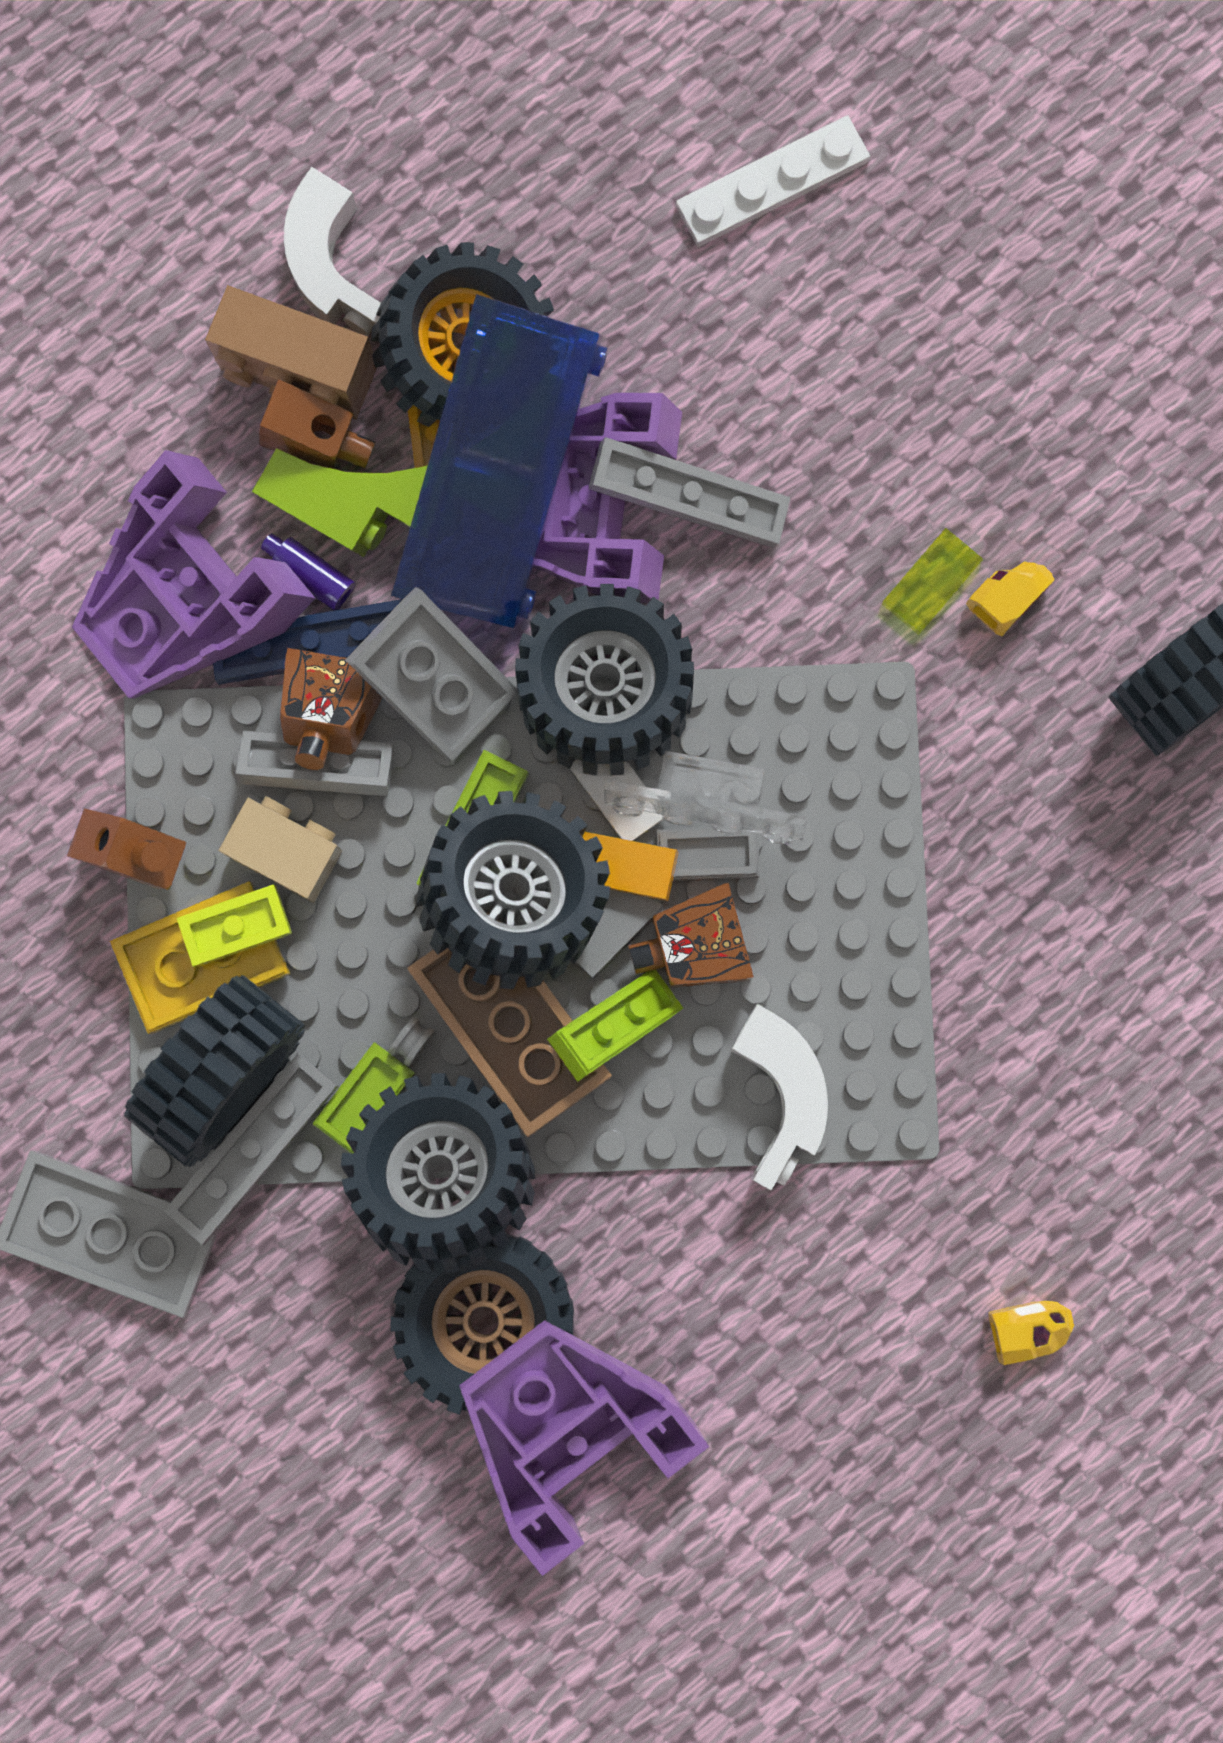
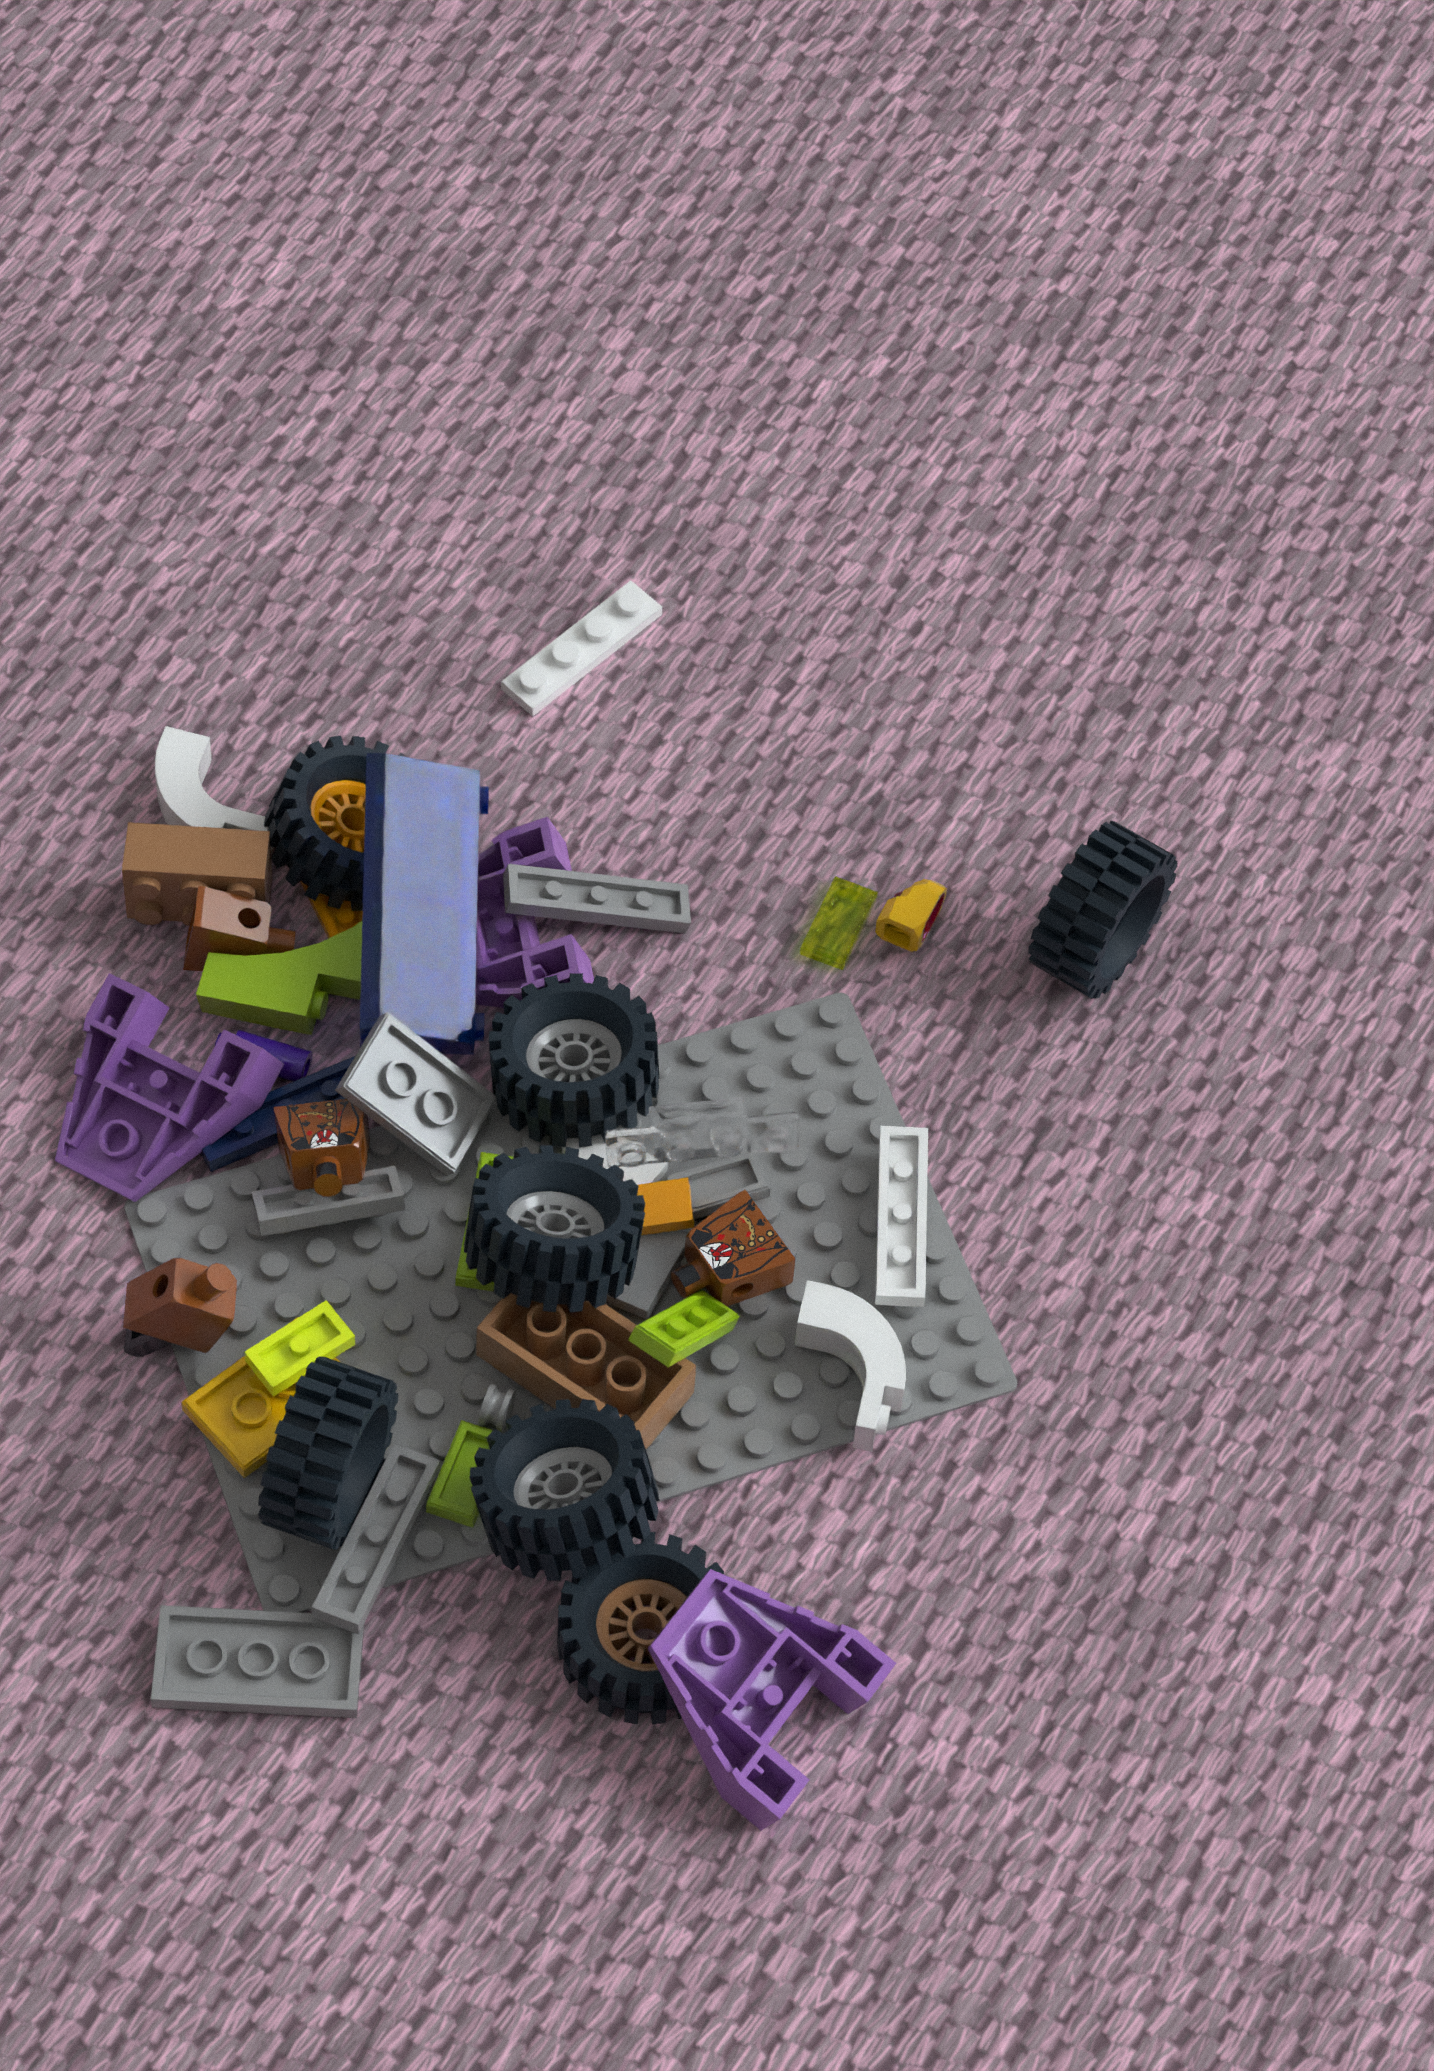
camera: 25 degrees left, 25 degrees down
(282, 849) = (312, 1271): tan brick -> none
(881, 946) = (901, 1216): none -> white plate
(1030, 1330) = (1154, 1504): yellow rock -> none

